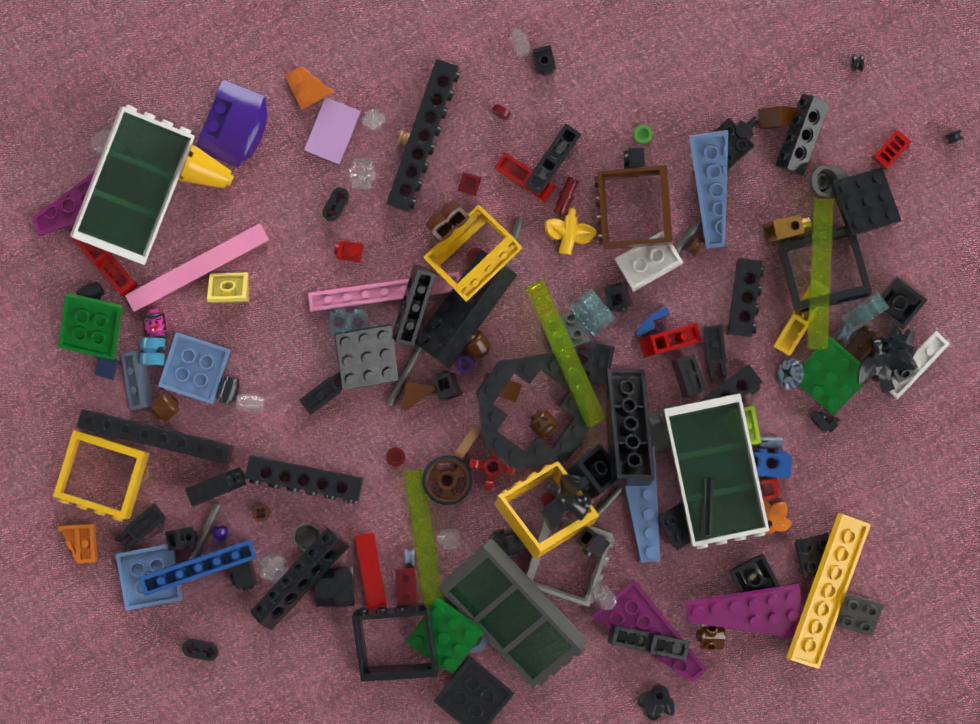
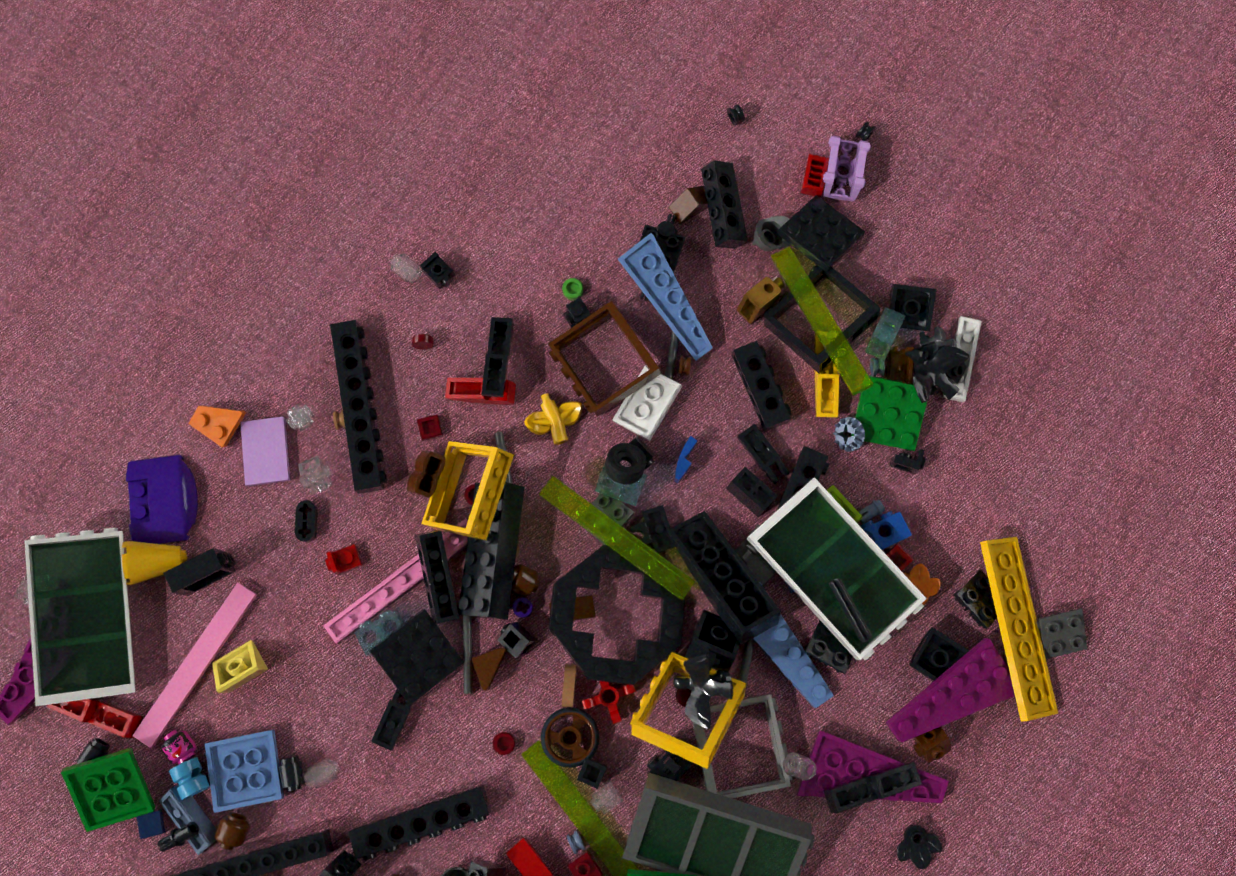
camera: 35 degrees left, 10 degrees down
(124, 389) = (178, 836): none -> black axle
(238, 200) = (200, 572): none -> black window
(449, 514) = (592, 772): none -> black brick
(543, 424) = (635, 622): reddish brown head -> none
(566, 196) = (531, 387): dark red pin -> none
(592, 542) = (755, 716): black brick -> none
(612, 296) = (629, 453): none -> black tyre
(670, 340) = (712, 468): red slope -> none
(927, 162) = (855, 168): none -> lavender piece

